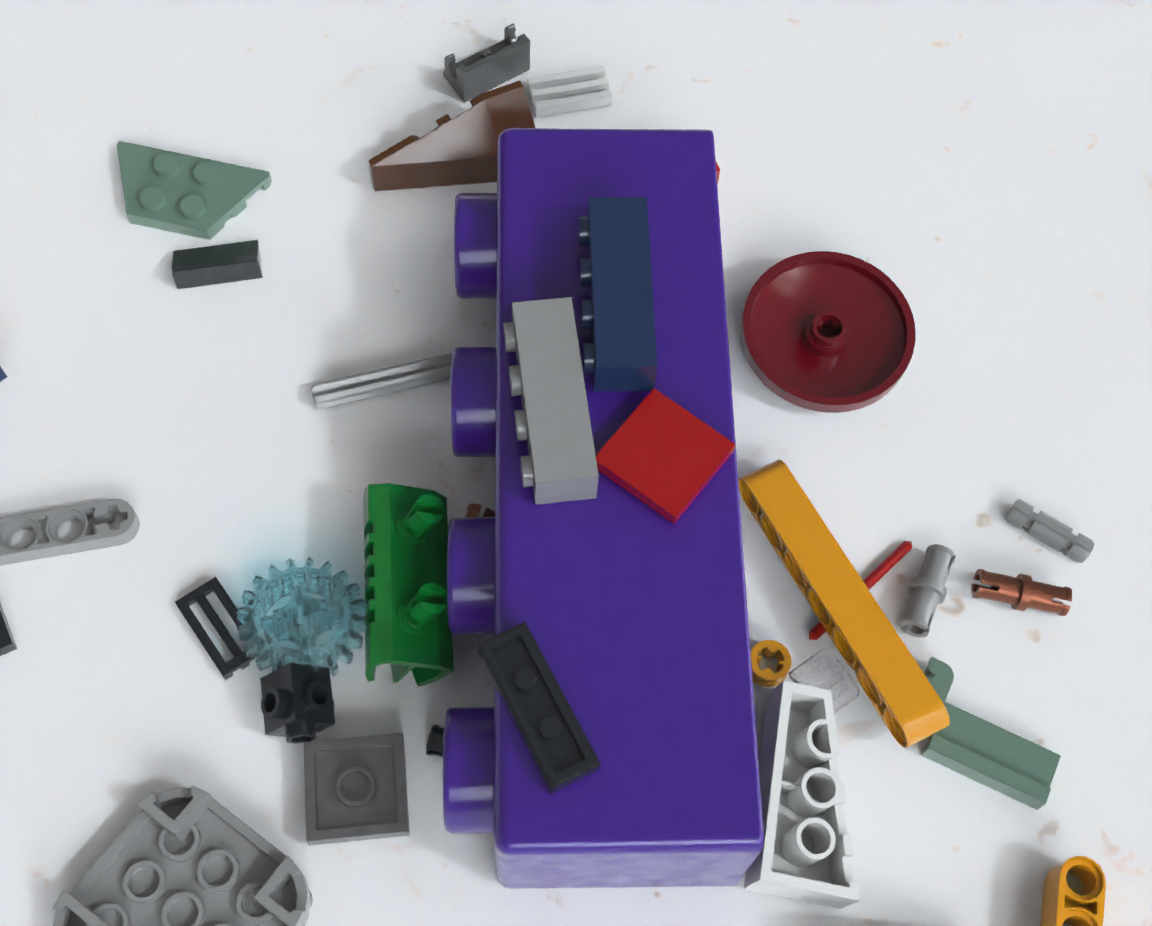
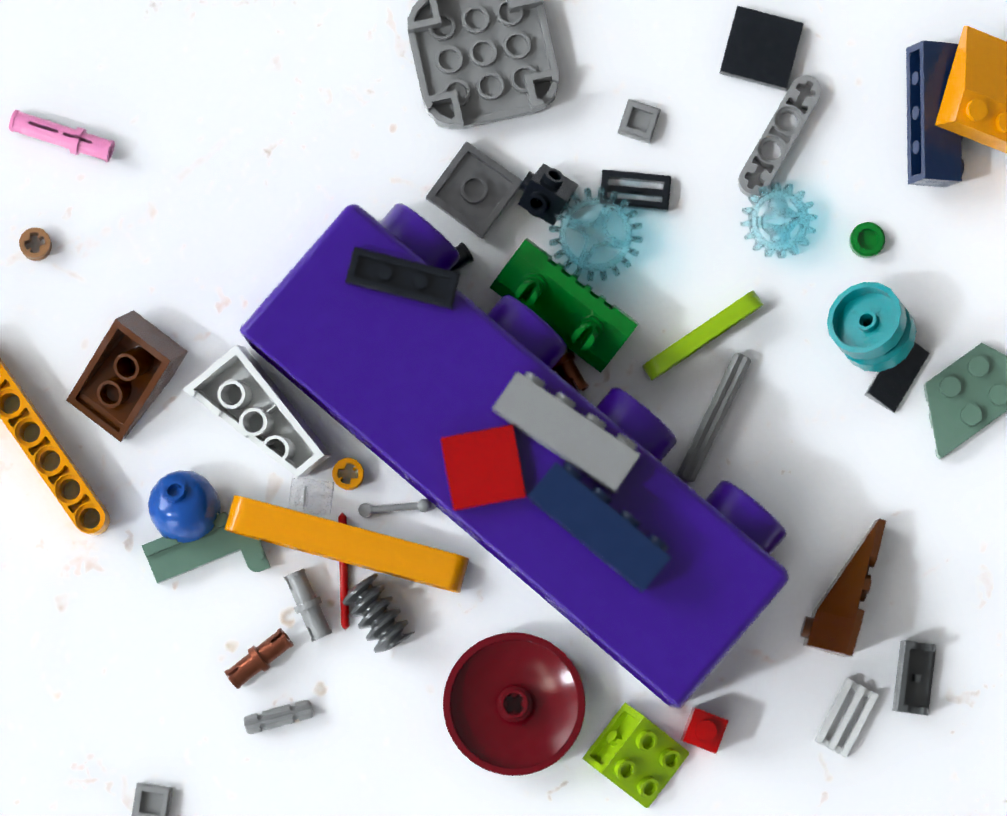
camera: 135 degrees right, 20 degrees up
(98, 378) = (867, 240): none -> green tile
(136, 684) = (639, 121): none -> light grey tile
(138, 461) = (778, 233): none -> clear light blue gear
(159, 292) = (871, 326): none -> teal wheel
(324, 443) = (702, 335): none -> lime beam
(766, 217) = (636, 755): none -> lime bracket
(784, 618) = (366, 510): none -> light grey hinge
(872, 514) = (376, 615): none -> dark grey piece
(966, 793) = (183, 506): none -> blue cylinder

